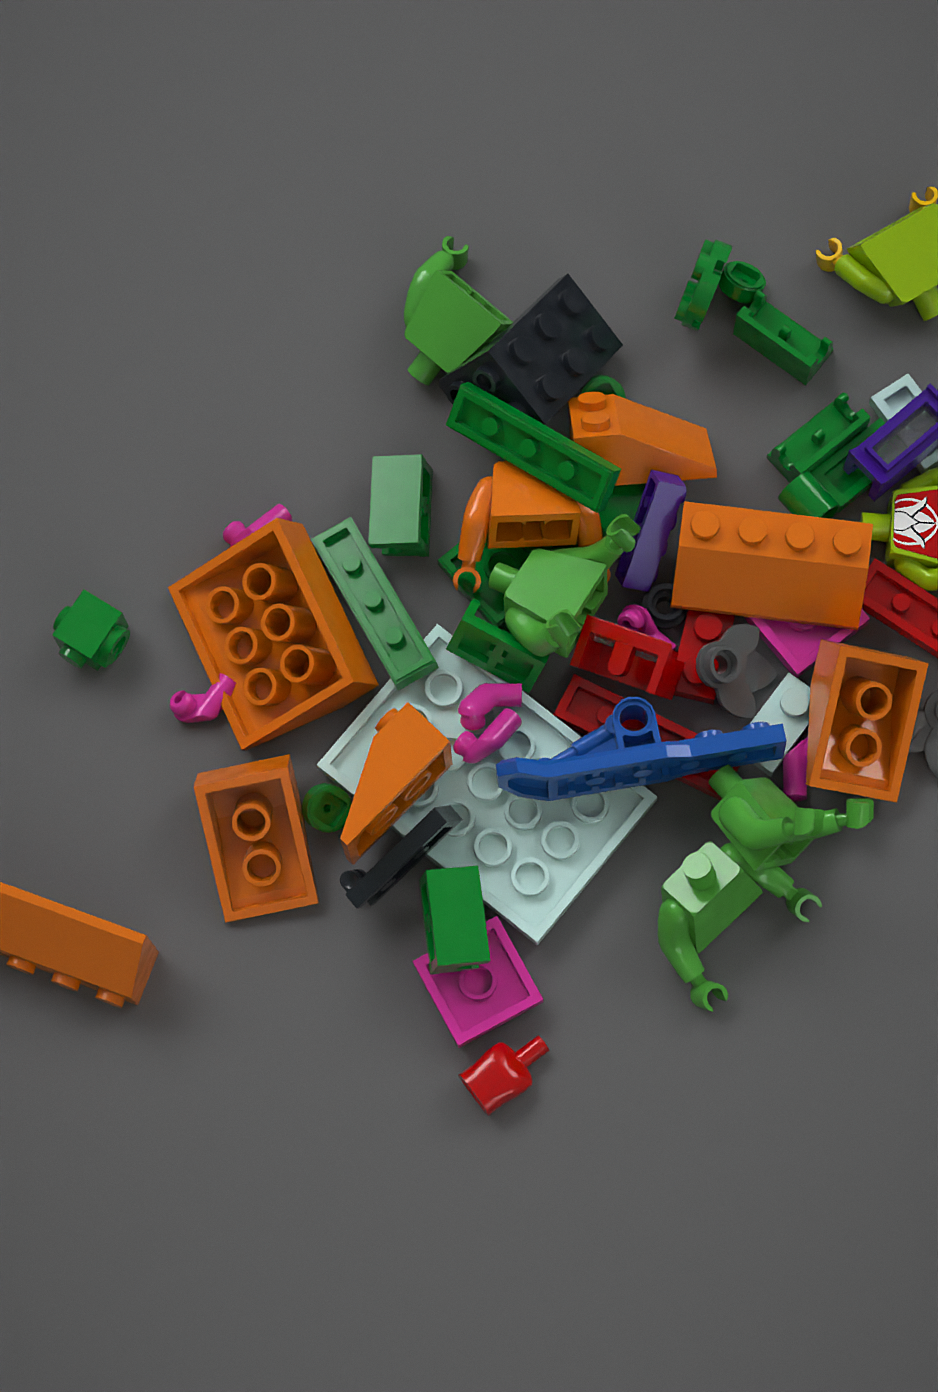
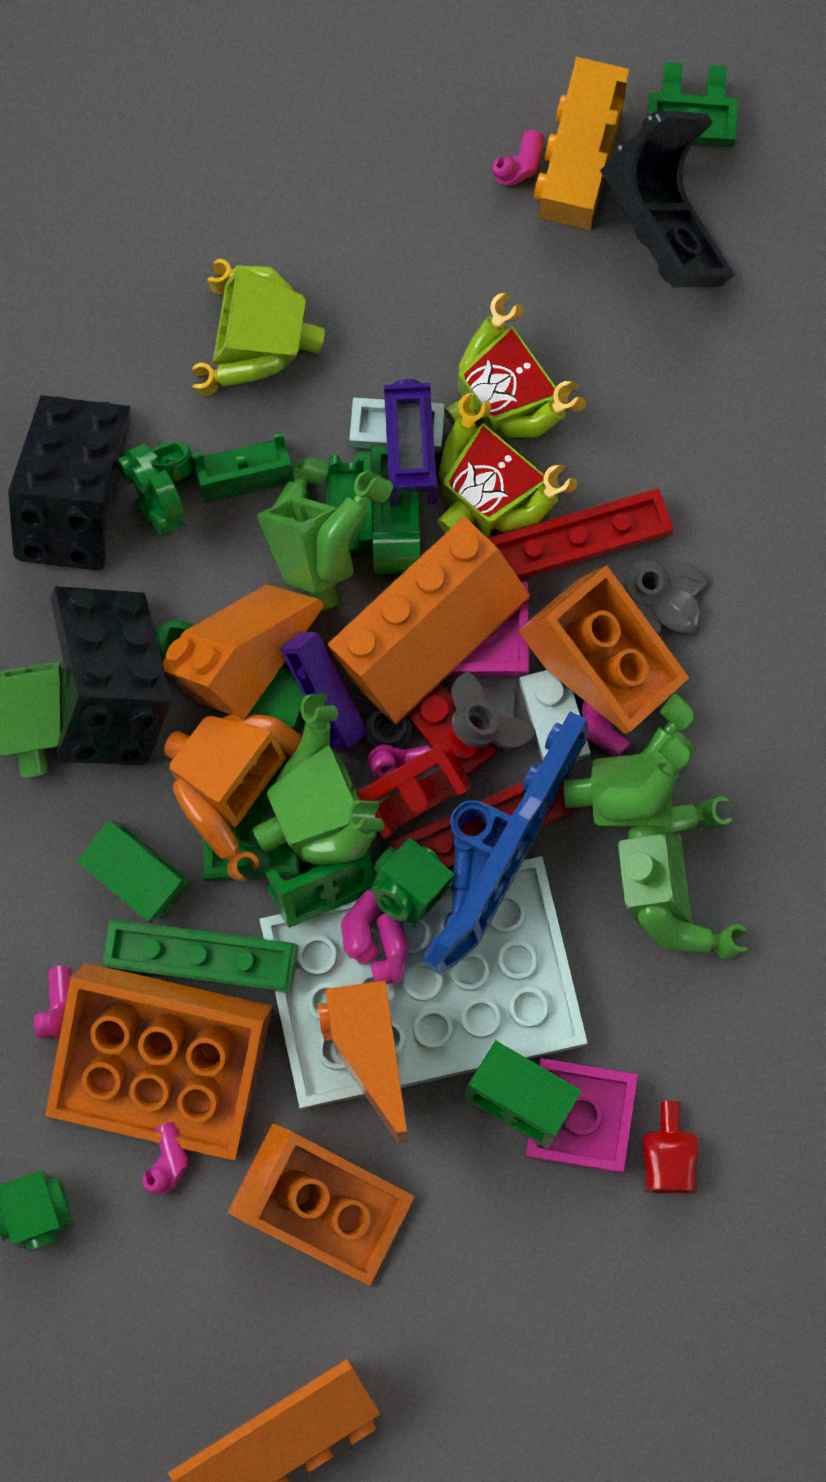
camera: 55 degrees left, 0 degrees up
(326, 807) = (340, 1127): green tile -> none
(374, 884) = (435, 1148): black hinge -> none
(533, 447) = (184, 725): green tile -> none
(551, 709) = (410, 882): none -> green brick
(658, 214) = (66, 482): none -> black bracket
(766, 425) = (313, 537): none -> bright green torso

